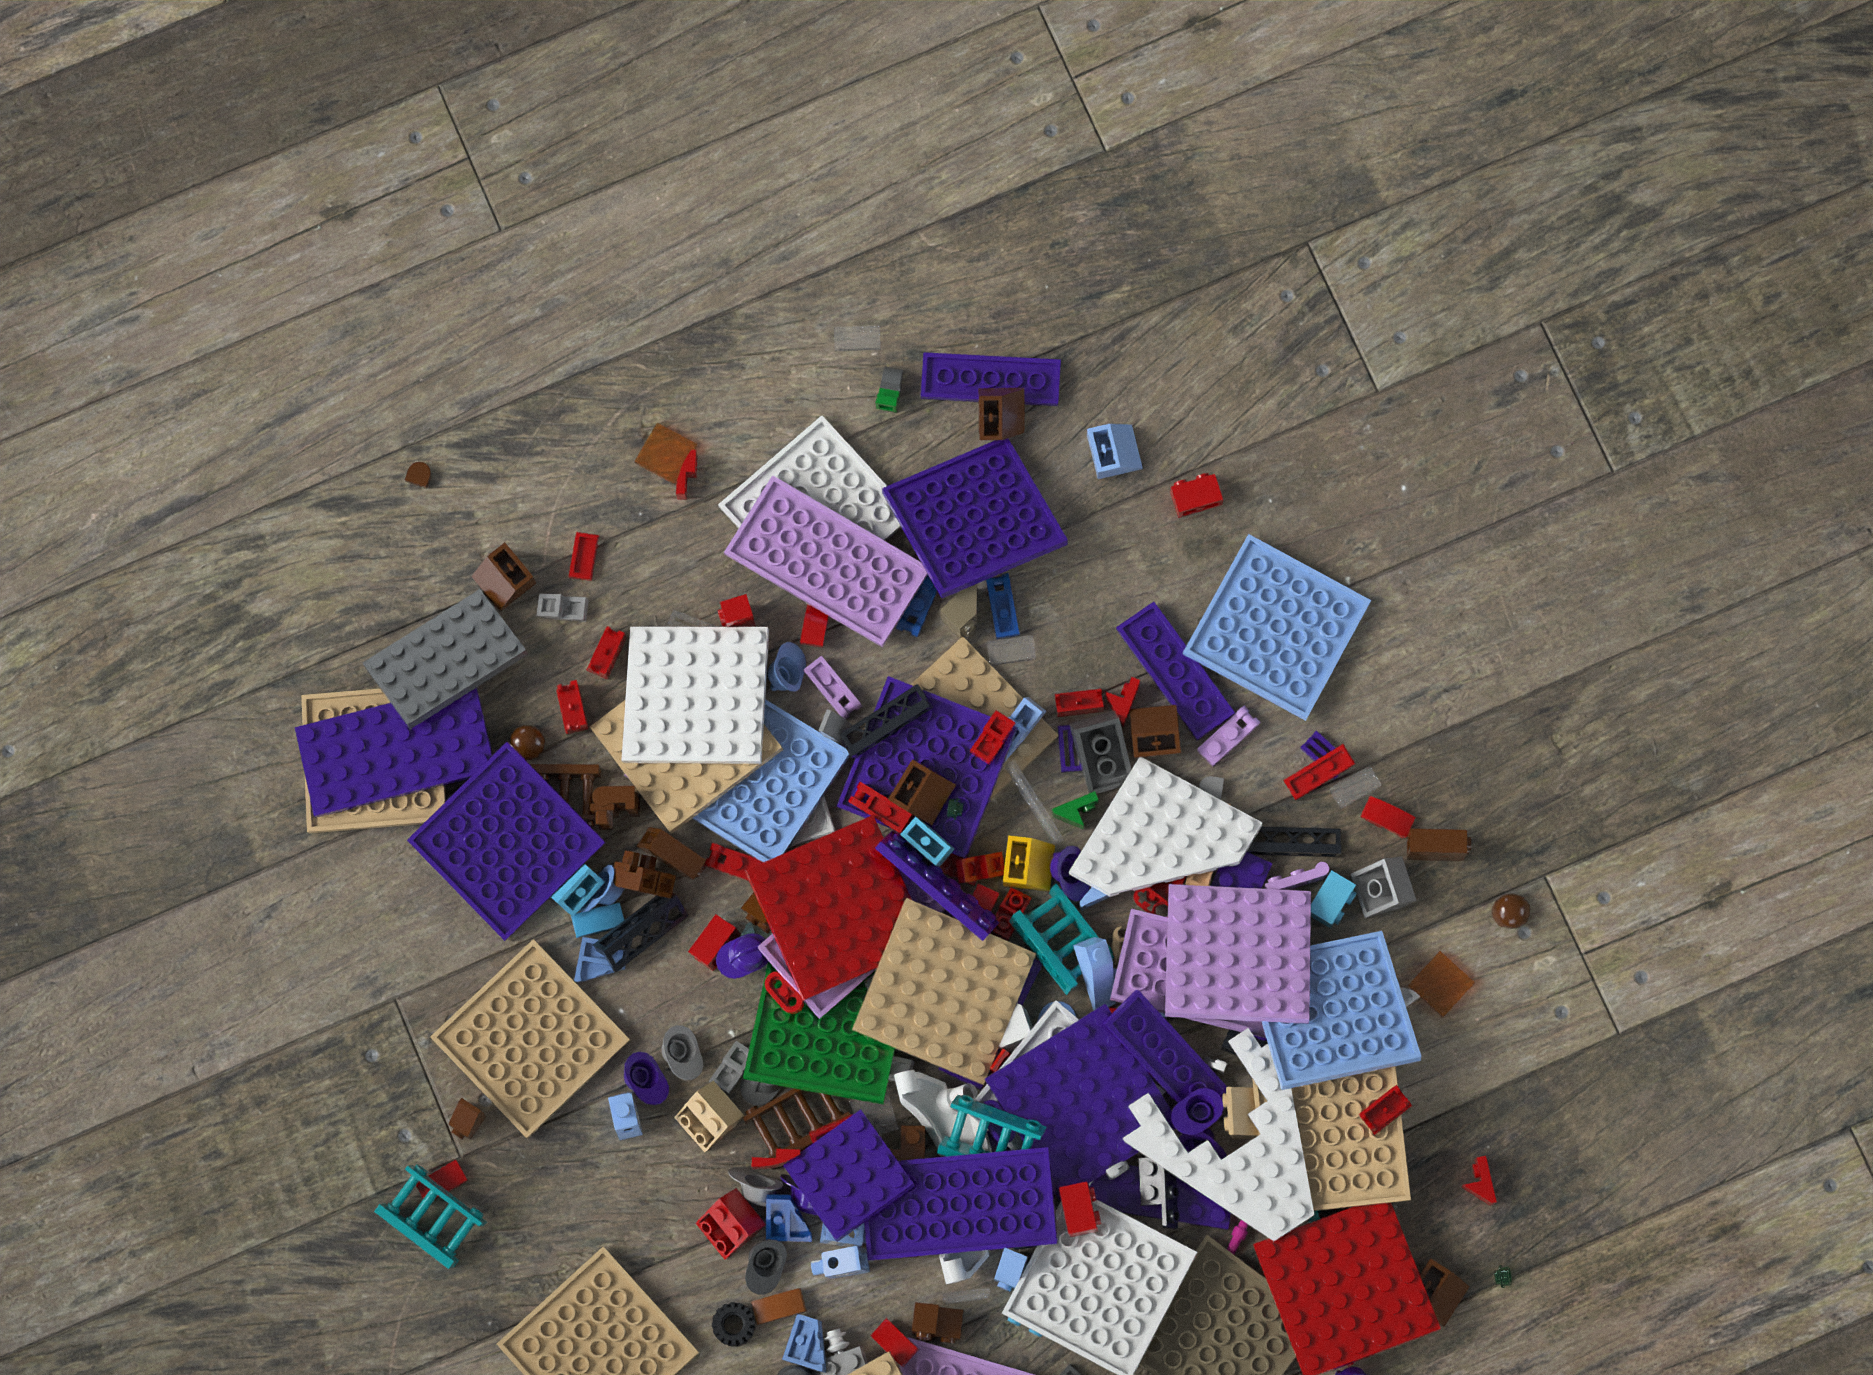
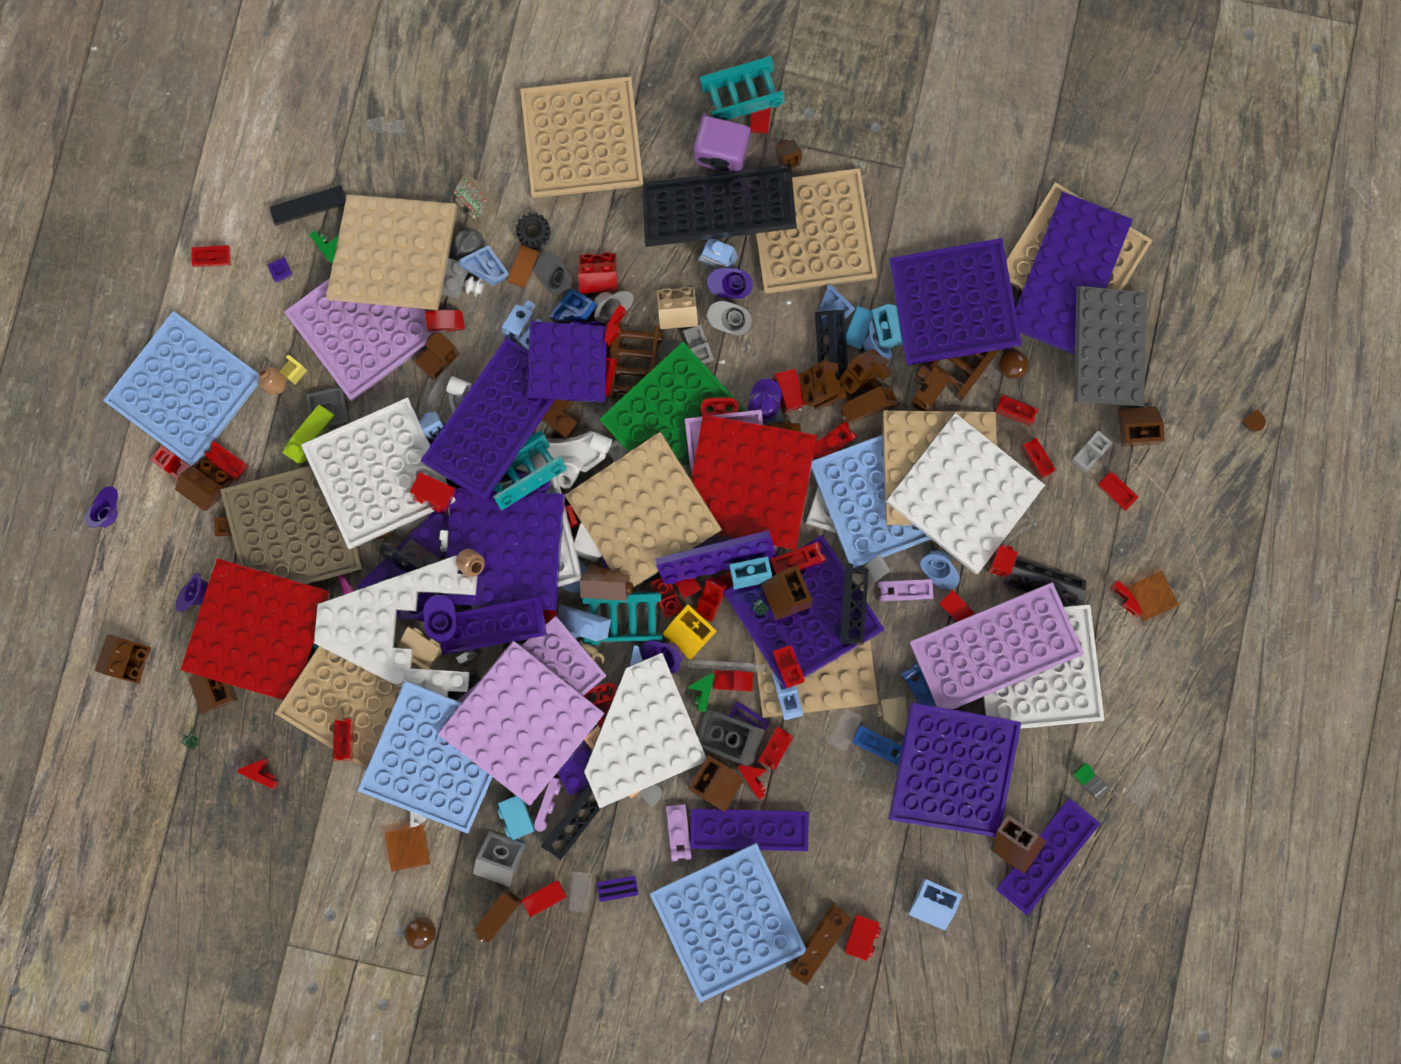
camera: 125 degrees right, 5 degrees up
(508, 1190) = (721, 144): none -> medium lavender piece
(574, 1146) = (718, 205): none -> black plate
(687, 911) = (820, 385): none -> reddish brown hips
(719, 564) = (1034, 572): none -> black fence
(1042, 974) = (605, 584): none -> reddish brown slope
(1045, 788) = (733, 680): none -> red slope
(1120, 1119) = (470, 562): none -> medium nougat head
(1231, 526) = (820, 944): none -> reddish brown fence
(1319, 772) = (608, 875): red tile -> none

